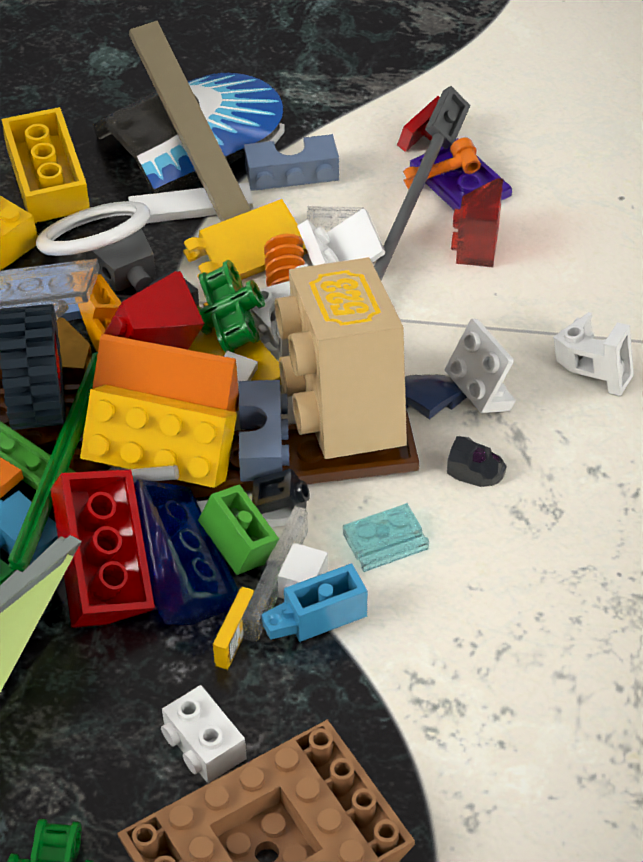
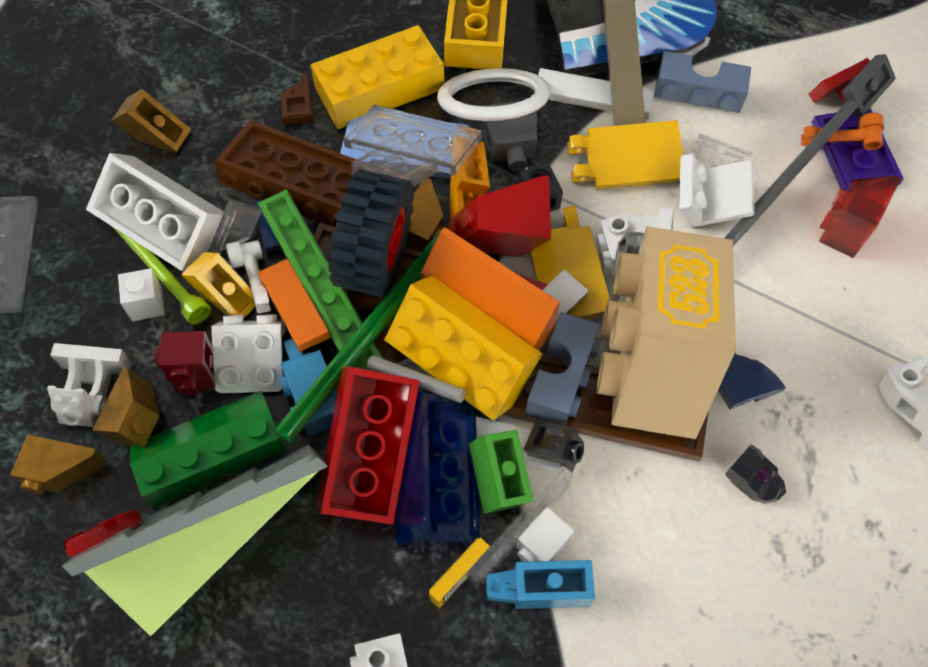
camera: 20 degrees right, 15 degrees up
(229, 307) = (583, 225): green axle -> none
(282, 254) = (653, 189): orange piece -> none
(385, 537) = (639, 524): clear light blue plate -> none
(480, 368) = (801, 380): white bracket -> none

